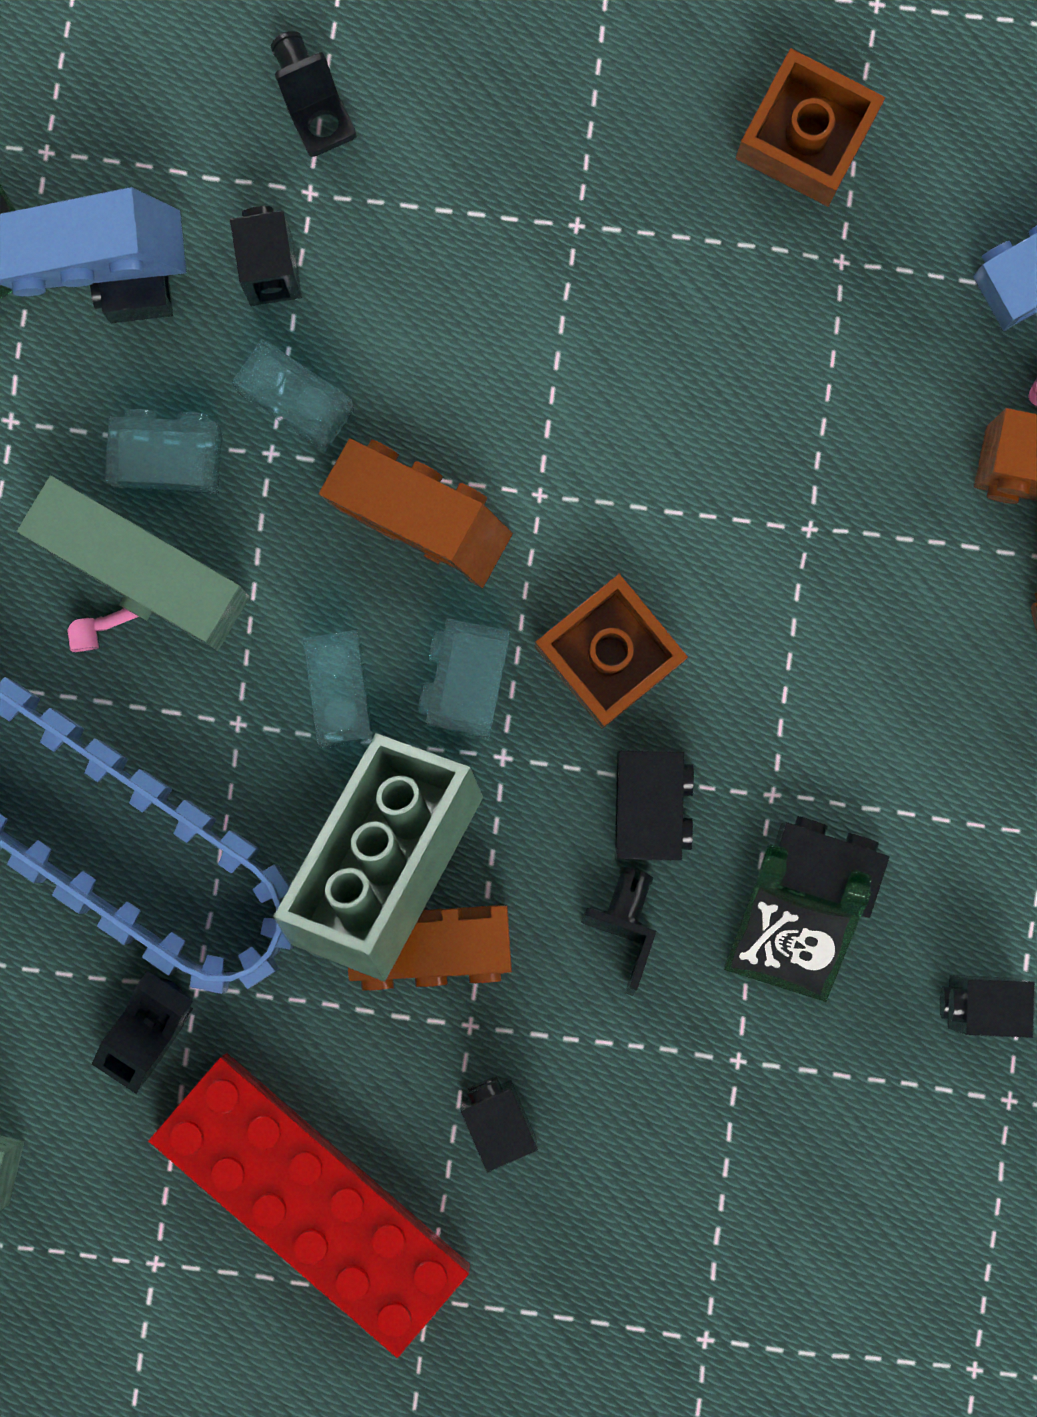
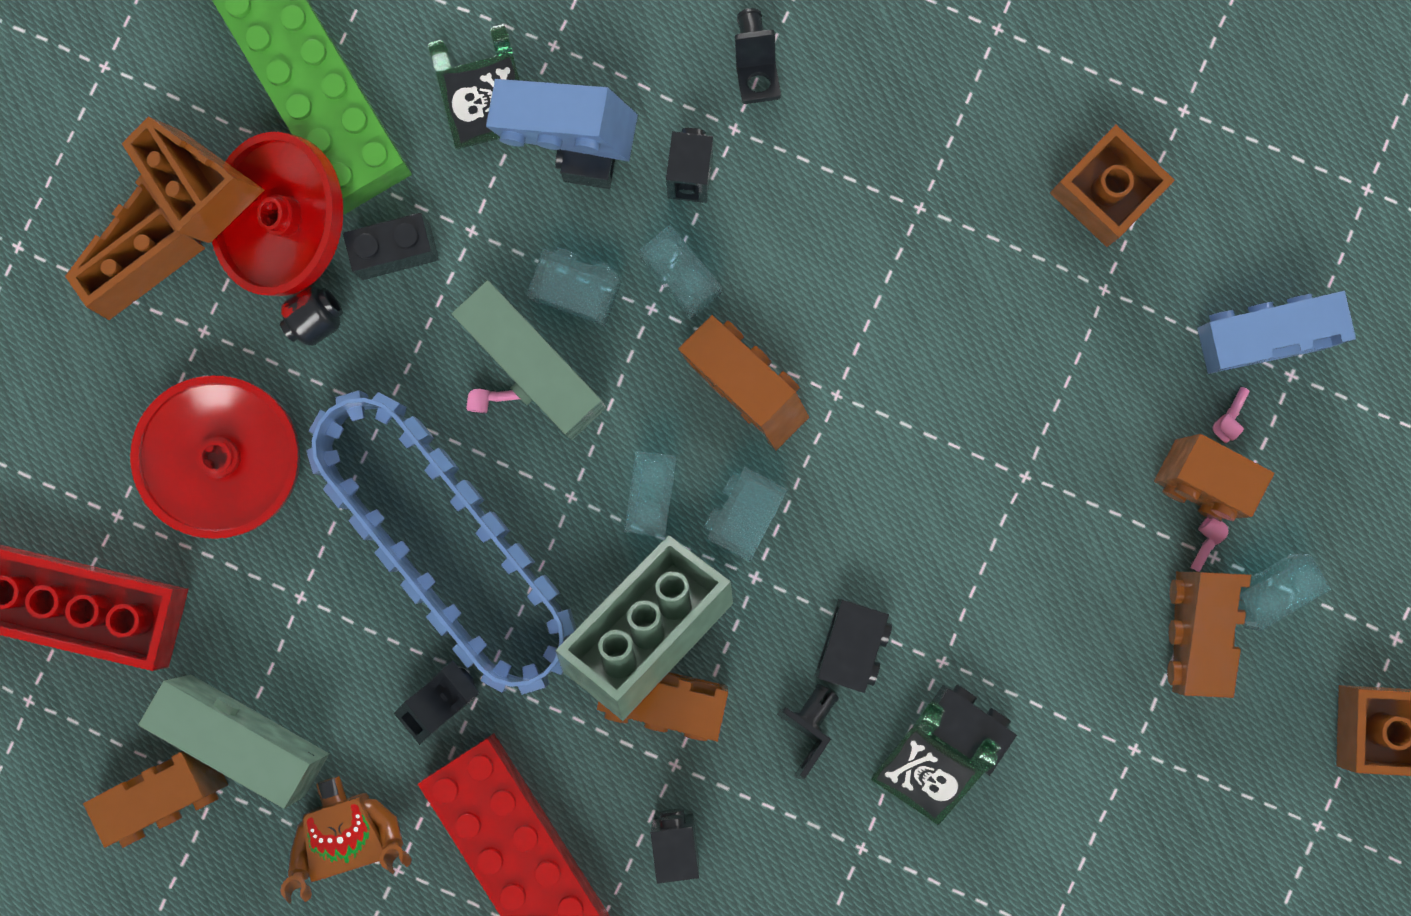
camera: 20 degrees right, 0 degrees up
(72, 1240) = (342, 838): none -> dark orange torso
(610, 651) = (857, 525): dark orange brick -> none
(988, 1006) = (1059, 866): black brick -> none

